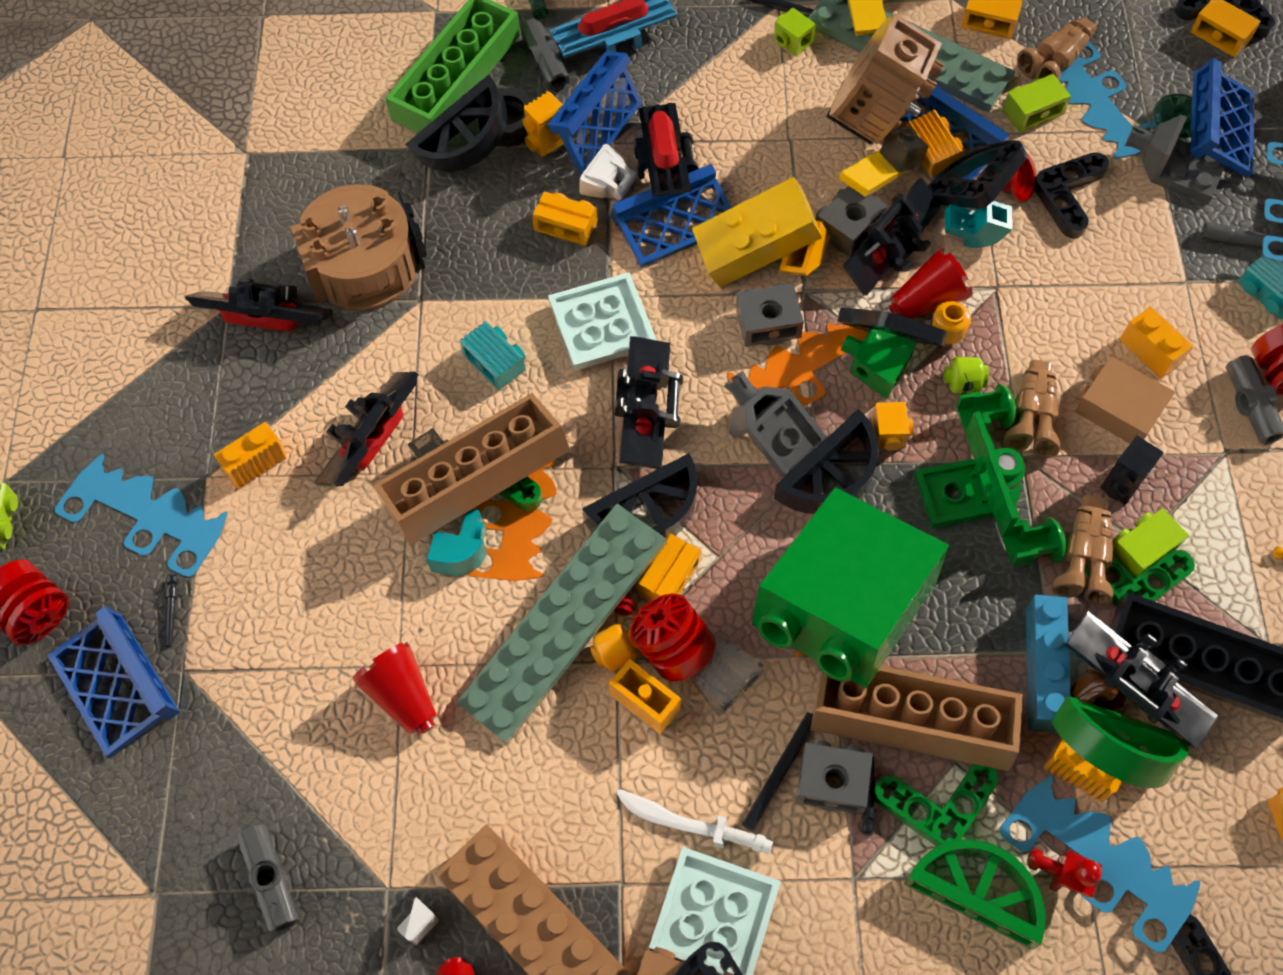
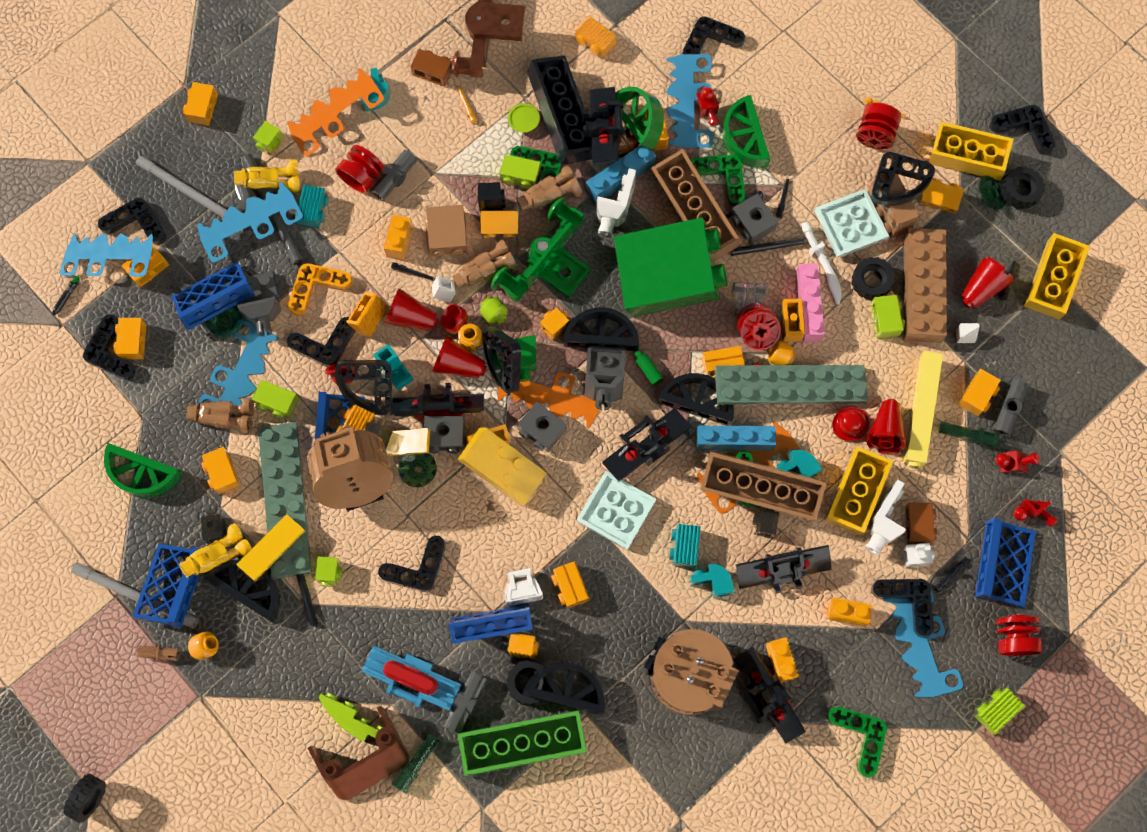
camera: 130 degrees left, 10 degrees up
(124, 776) = (1033, 509): none -> red piece
(127, 373) = (866, 729): none -> green beam
(191, 545) = (916, 597): none -> black beam
(201, 813) = (1016, 461): none -> red piece
(226, 585) = (918, 555): none -> white brick
(256, 622) = (920, 523): none -> dark orange brick
(278, 346) = (782, 659): none -> light orange brick
(292, 566) = (882, 528): none -> white plate
(326, 855) = (979, 393): none -> light orange brick
(330, 768) = (978, 436): none -> clear green pin
(362, 583) = (859, 490): none -> yellow brick
(380, 761) = (923, 409): none -> light yellow brick
(427, 357) = (718, 578): none -> teal brick
(451, 660) = (850, 423): none -> red hat
(538, 832) = (887, 316): none -> lime brick
(560, 504) = (736, 438): none -> dark azure brick
(583, 858) = (878, 265): none -> black tyre
(644, 204) = (513, 545): blue fence -> none
(650, 745) = (809, 291): none -> bright pink brick
(660, 148) = (484, 569): black piece -> none
(716, 103) = (423, 571): none -> black beam
(740, 485) = (648, 368): none -> green cylinder
(824, 843) = (781, 206): none -> black piece
(828, 165) = (408, 465): none -> clear green dish
(989, 325) = (454, 318): none -> red hair
(994, 618) = (612, 212): none -> white plate
(1037, 283) = (410, 313): none -> red cone
(1042, 345) = (443, 289): none -> white slope
(1070, 242) = (368, 314): none -> light orange brick
(1087, 460) = (499, 223): none -> light orange brick
(1105, 328) = (402, 268): none -> black piece
(1164, 232) = (315, 278): none -> light orange beam
(1235, 609) = (523, 117): none -> lime piece

